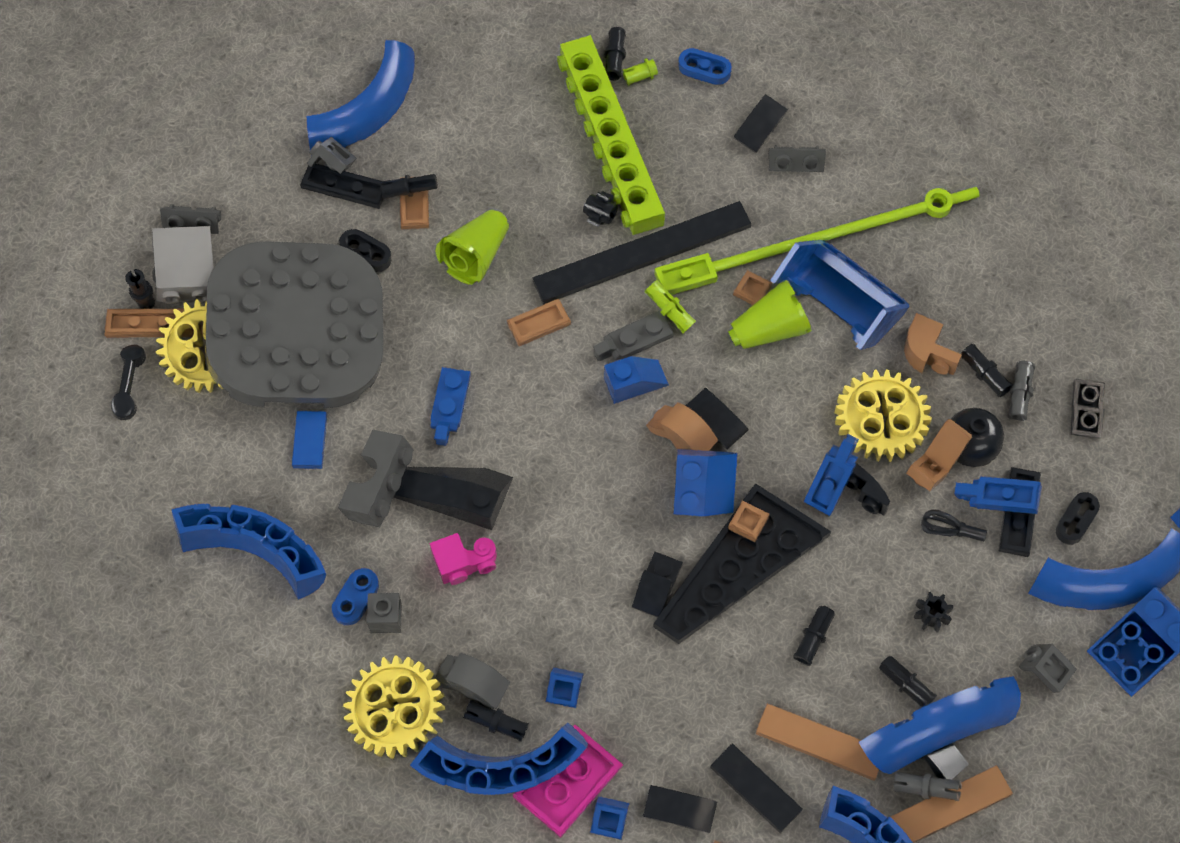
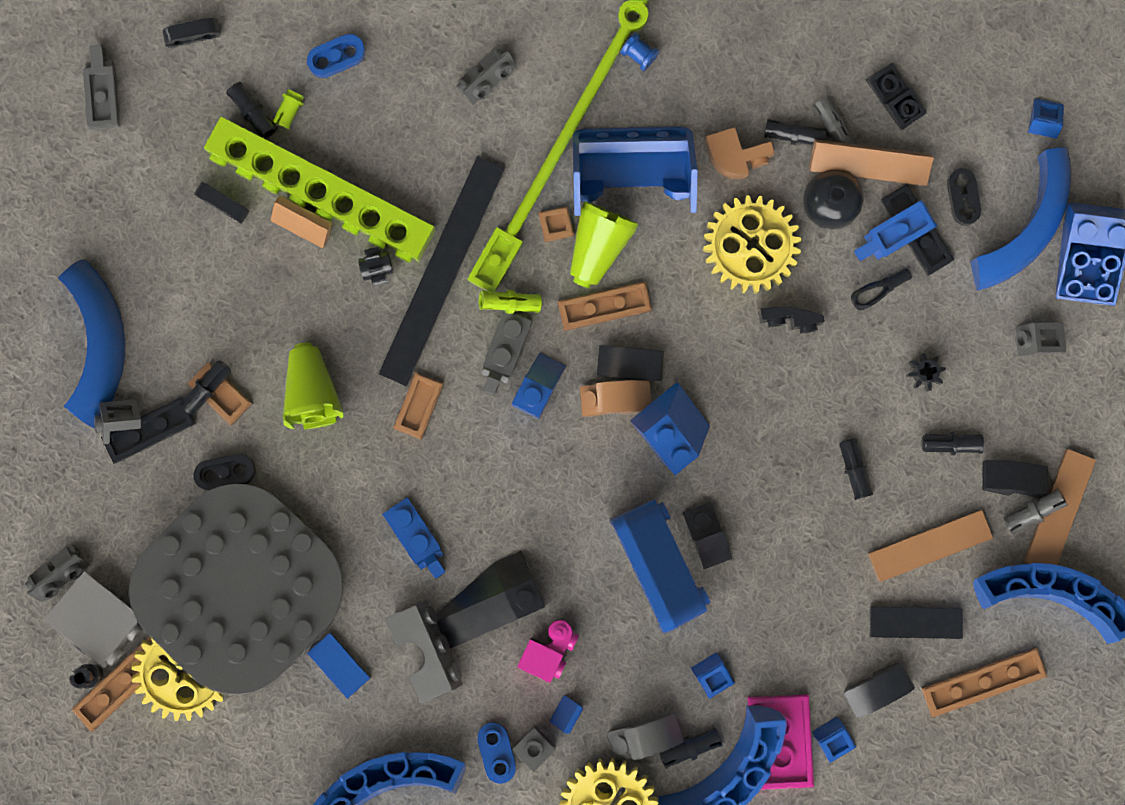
camera: 40 degrees left, 20 degrees up
(122, 402) = (132, 728): black bar -> none
(432, 616) = (566, 714): none -> blue slope
(537, 89) = (221, 202): none -> black beam
(578, 142) = (301, 221): none -> tile
(597, 560) = (660, 565): none -> blue windscreen
(735, 369) = (604, 306): none -> medium nougat tile
(738, 566) = (751, 449): black wing -> none
(748, 521) = (733, 427): medium nougat tile -> none
(760, 123) = (430, 69): black slope -> none
(832, 476) = (764, 334): blue hinge -> none
(920, 228) = (640, 51): none -> blue bush
(940, 456) = (825, 244): medium nougat bracket -> none
(943, 724) = (1011, 457): blue brick -> none
(1026, 433) = (871, 162): none -> medium nougat tile

